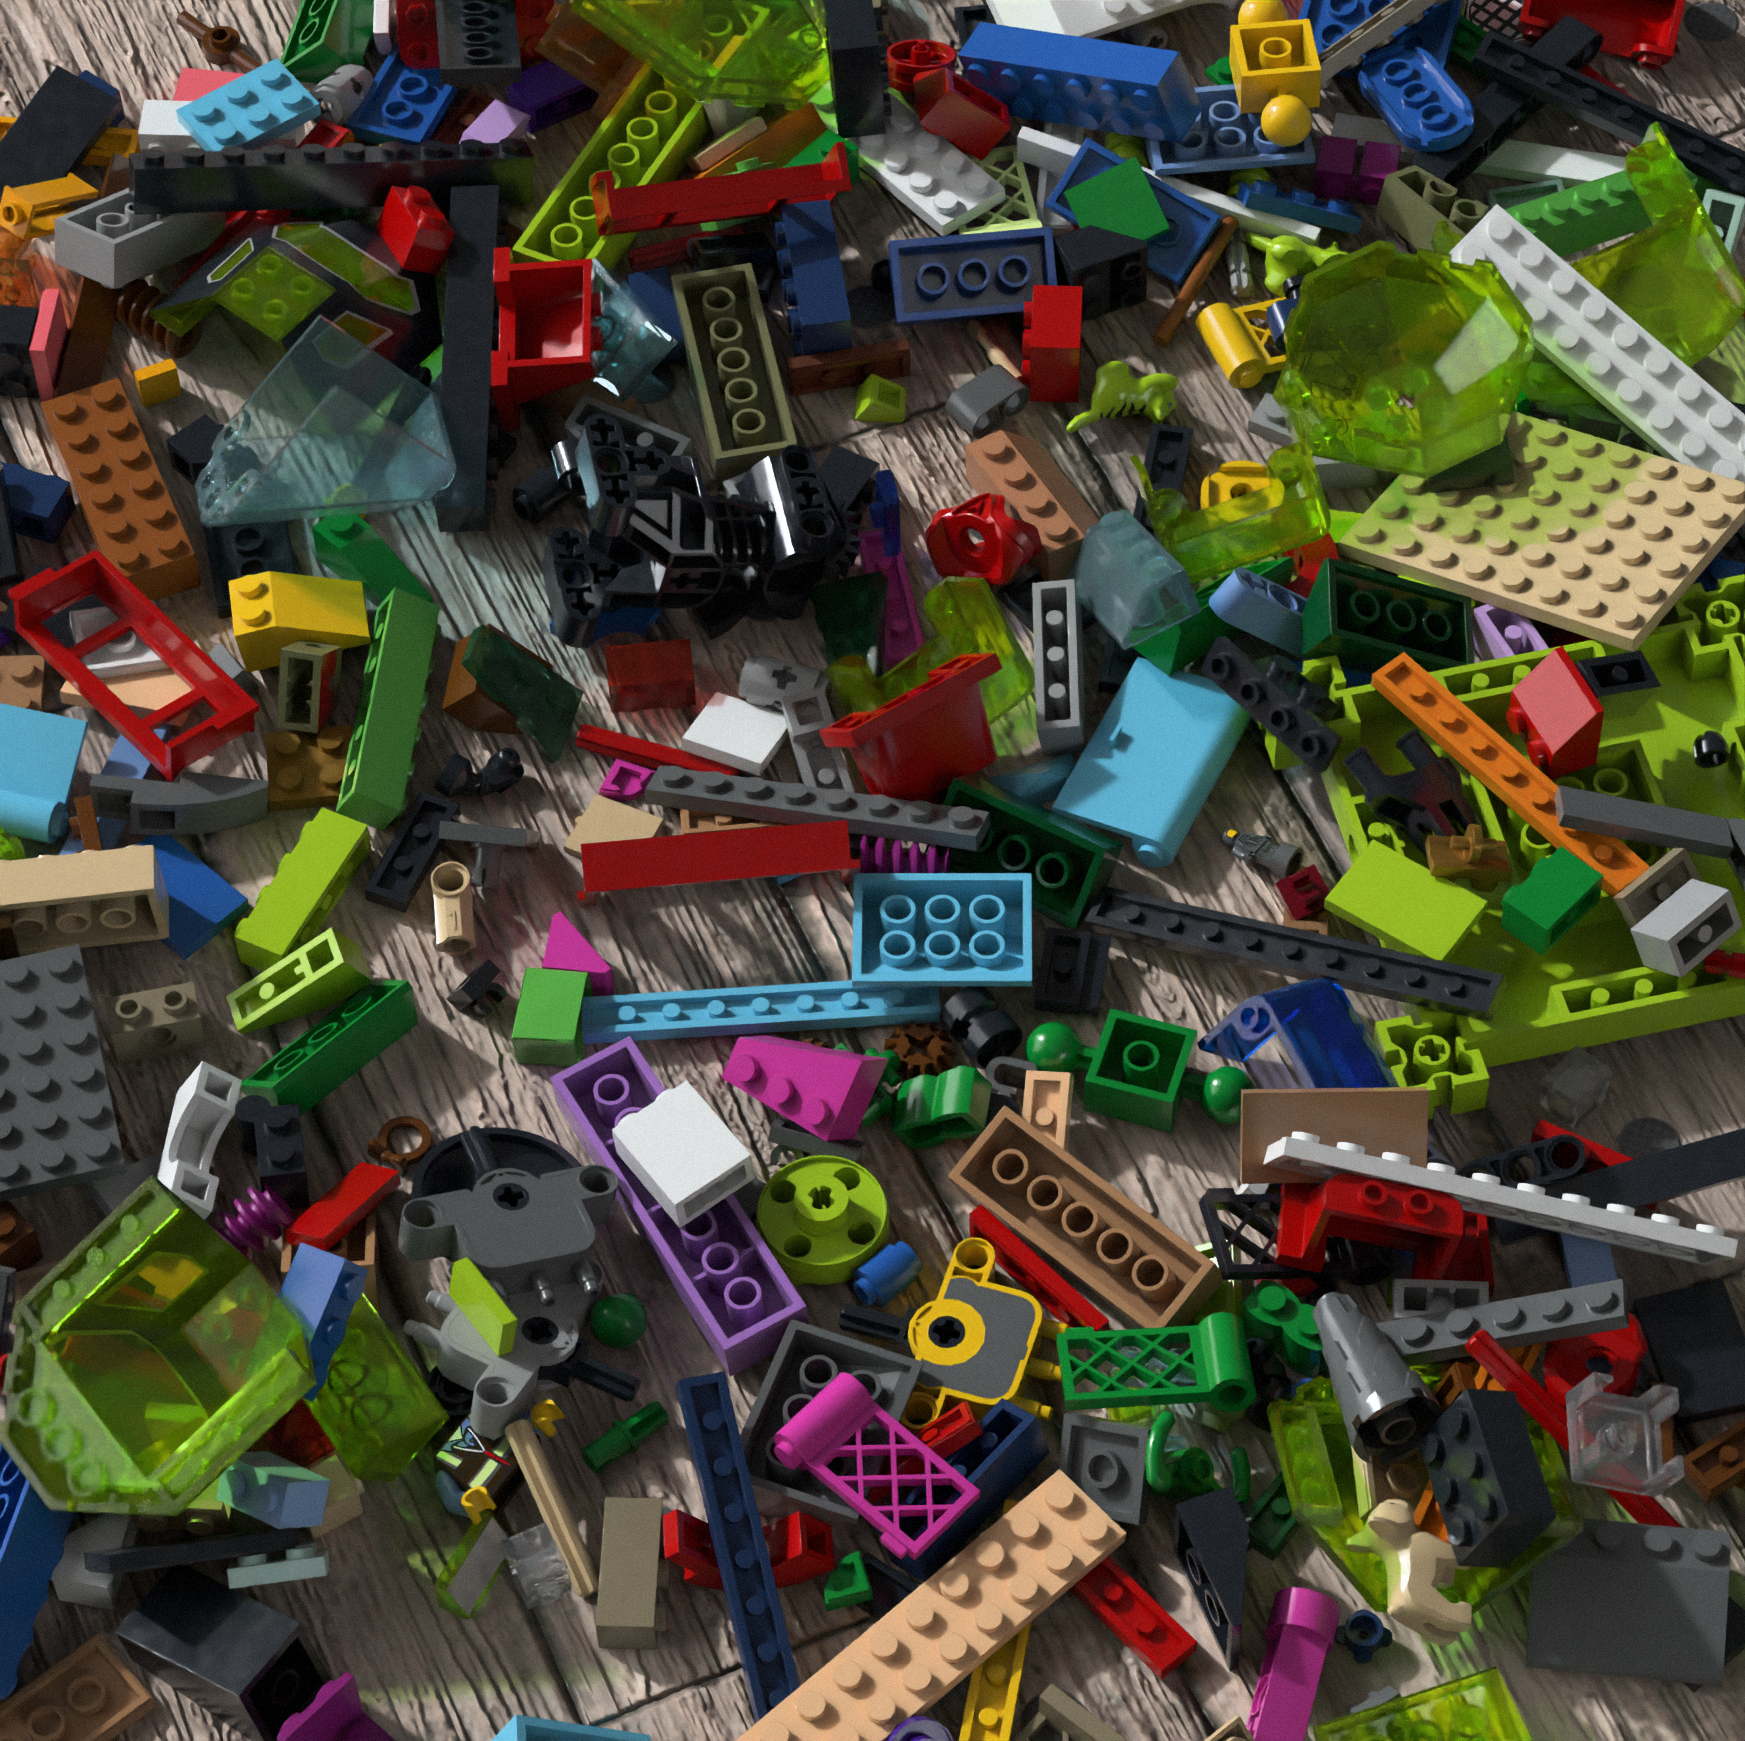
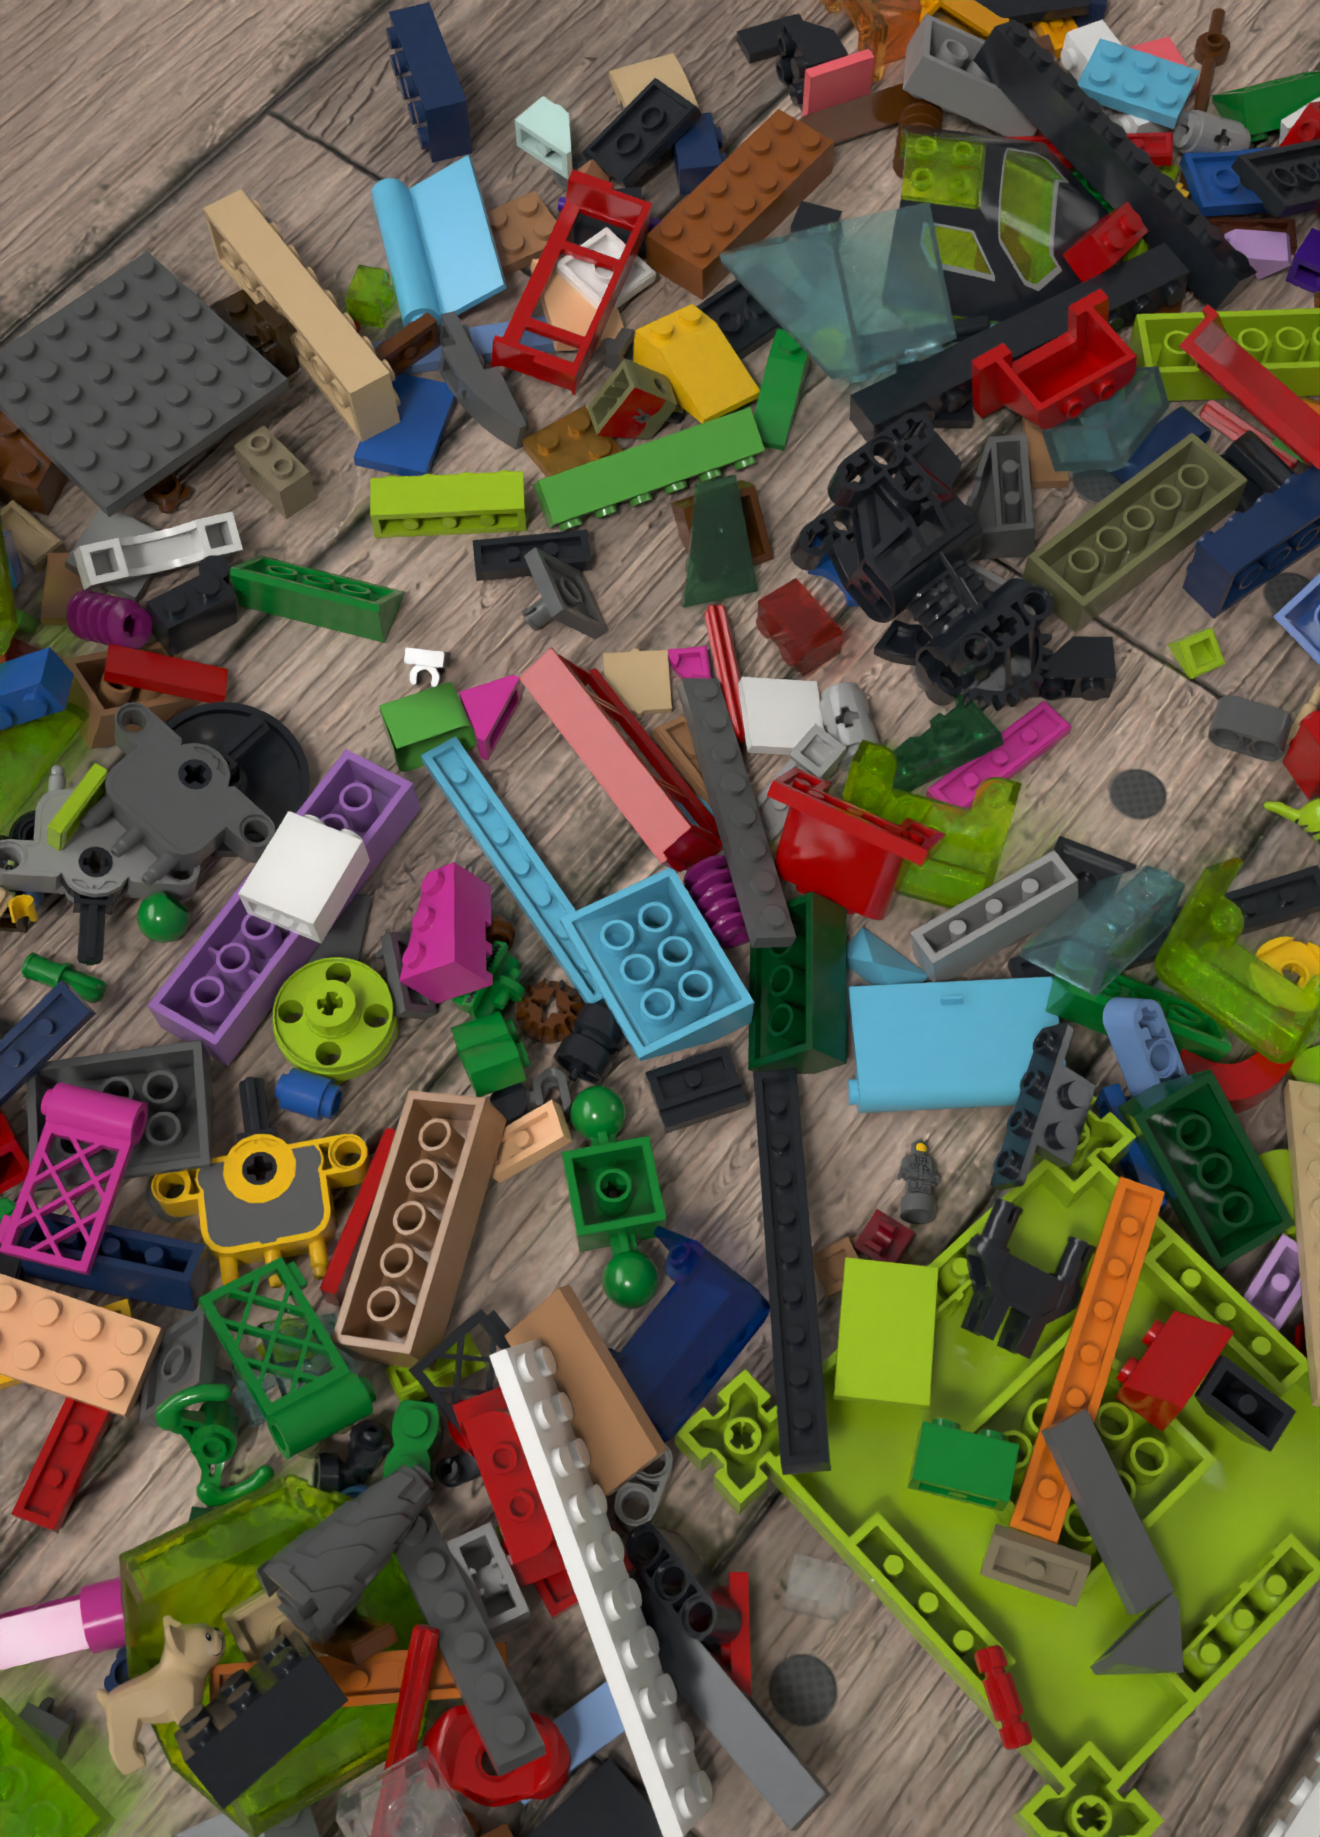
camera: 60 degrees right, 10 degrees up
(157, 383) = (860, 173): light orange tile -> none
(301, 983) = (367, 546): lime slope -> none
(378, 1148) = (247, 675): reddish brown piece -> none
(453, 909) = (491, 609): tan piece -> none
(498, 775) = (617, 547): black arm -> none
(848, 366) = (1209, 609): copper tile -> none
(886, 513) = (1059, 706): clear blue plate -> none
(942, 1436) = (140, 1213): red tile -> none
(1005, 546) = (1081, 793): red piece -> none
(1034, 494) = (1171, 812): nougat slope -> none
(1212, 1552) = (121, 1513): black slope -> none
(1469, 857) = (968, 1365): pearl gold hips -> none
(1686, 927) = (1002, 1613): light grey brick -> none
(1710, 750) = (1251, 1534): black hinge -> none

